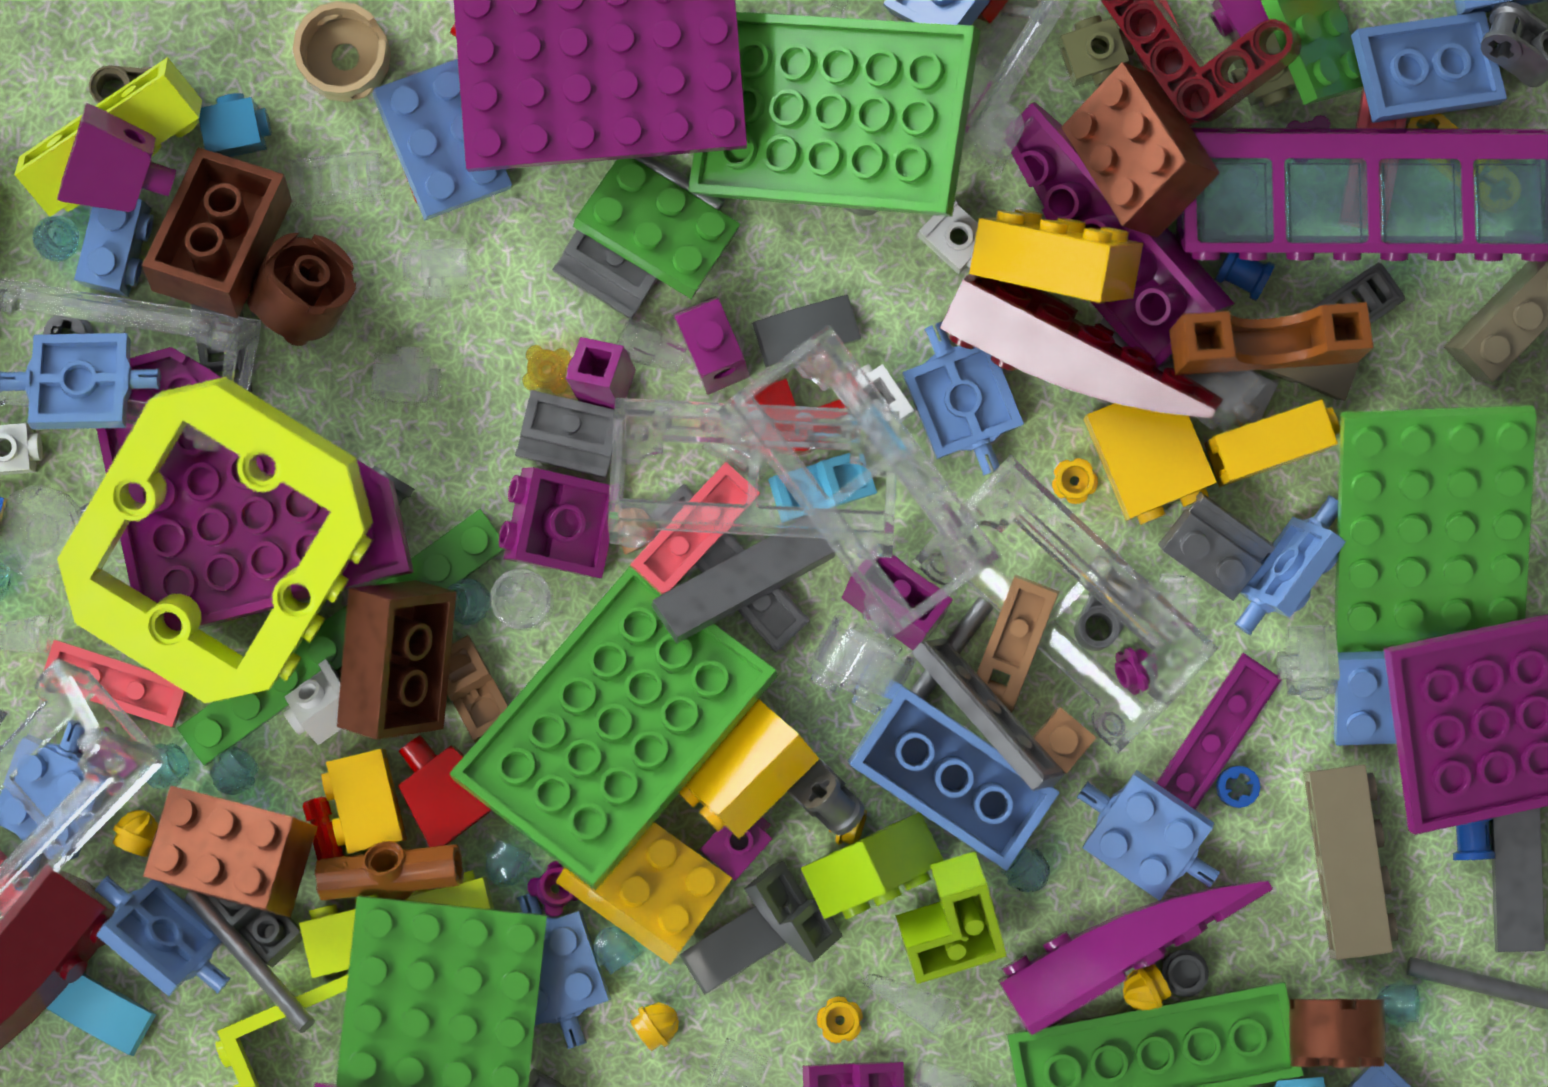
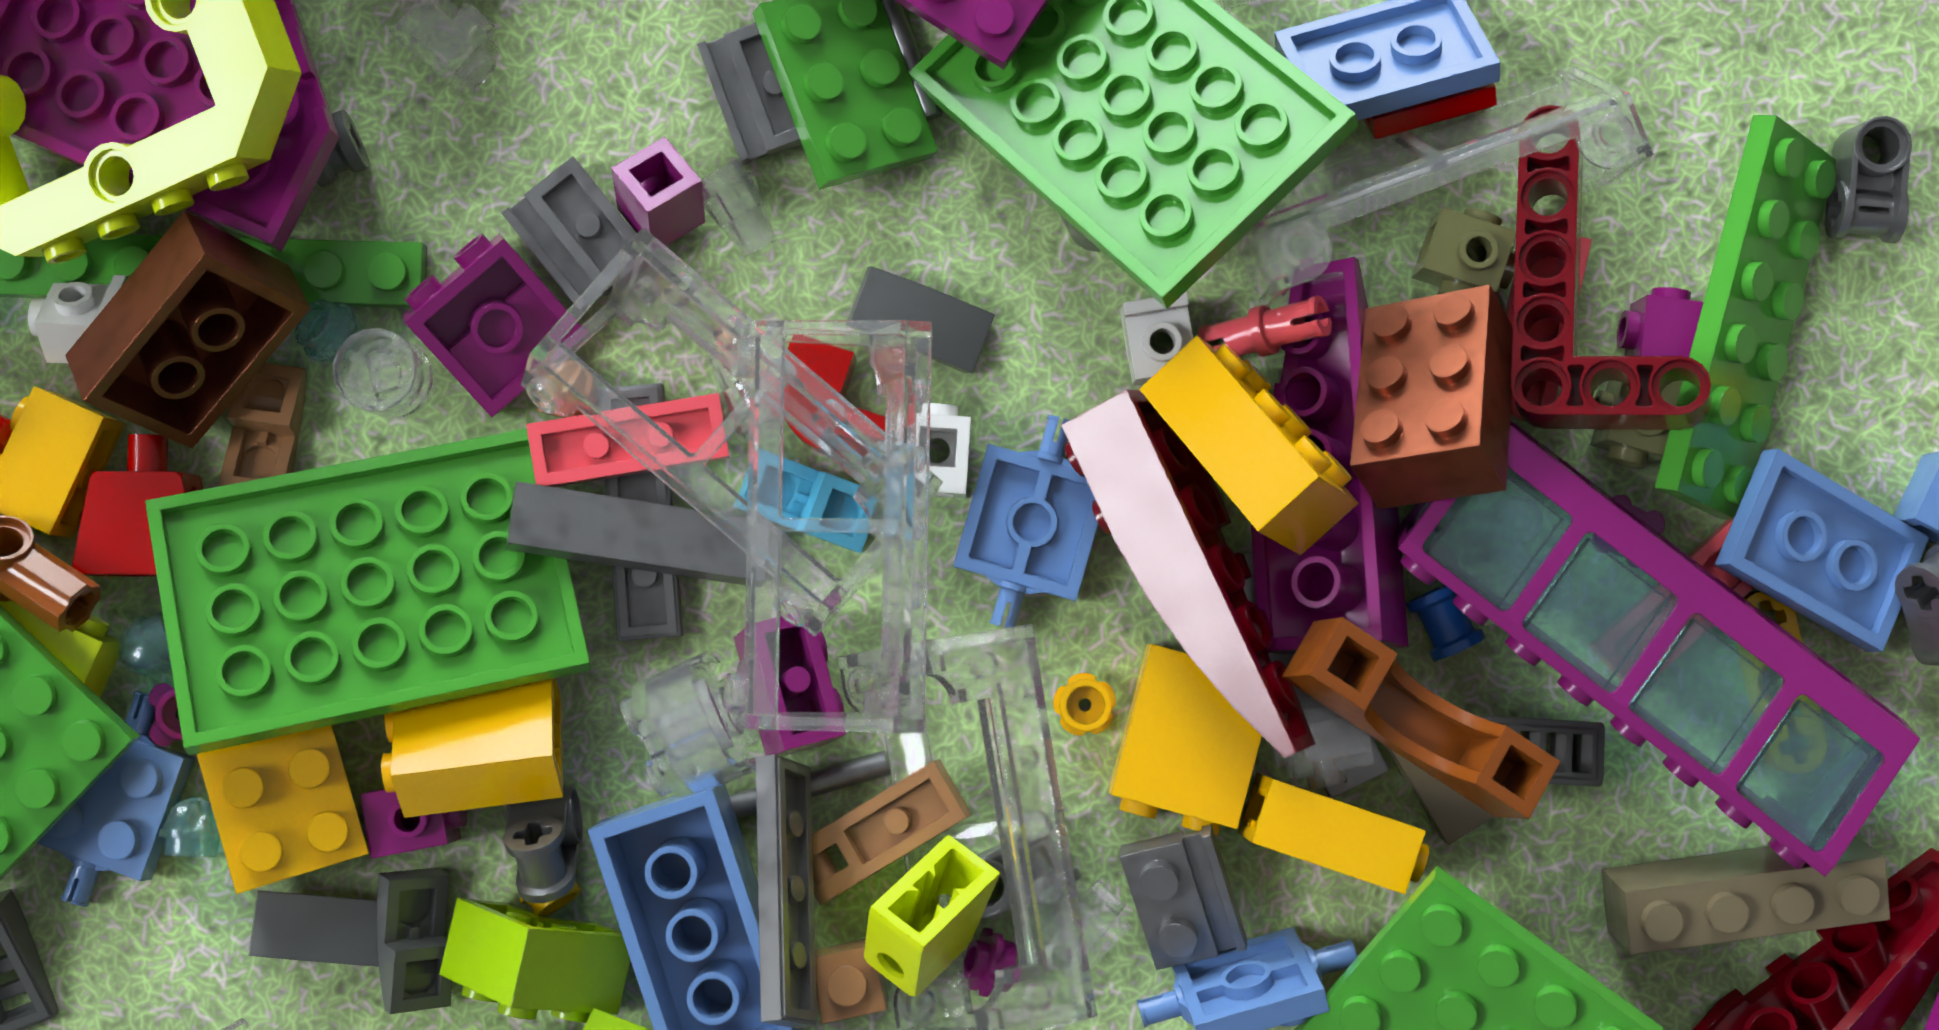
camera: 35 degrees right, 0 degrees up
(539, 358) = (607, 130): clear yellow plate -> none
(656, 1024) = (171, 946): yellow plate -> none
(712, 345) = (802, 255): magenta torso -> none
(1014, 182) = (1268, 329): none -> coral pin
(1080, 685) = (907, 929): none -> neon yellow torso

